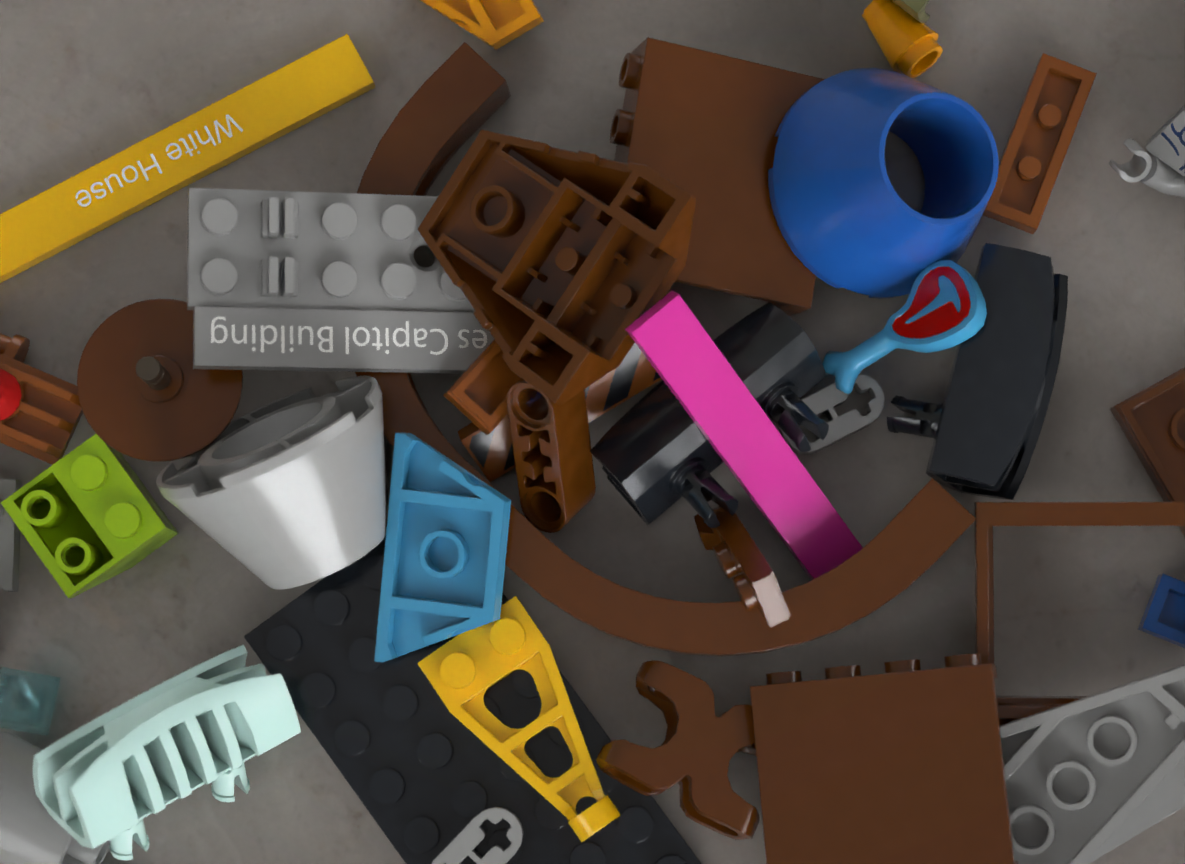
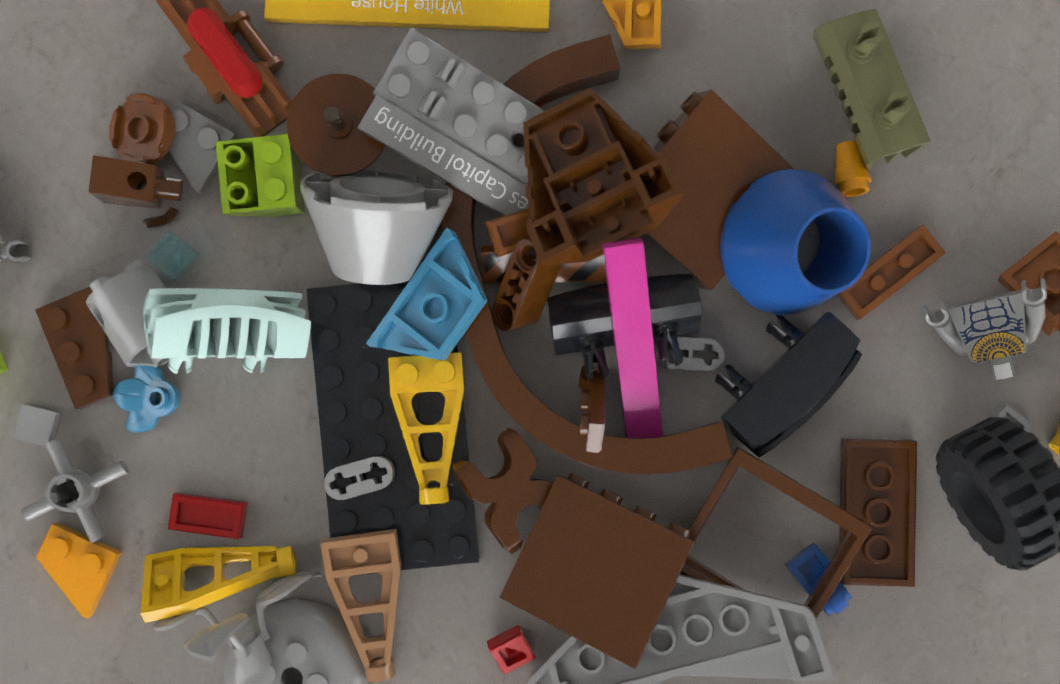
camera: 30 degrees right, 5 degrees up
(938, 315) = (780, 335): dark azure piece -> none

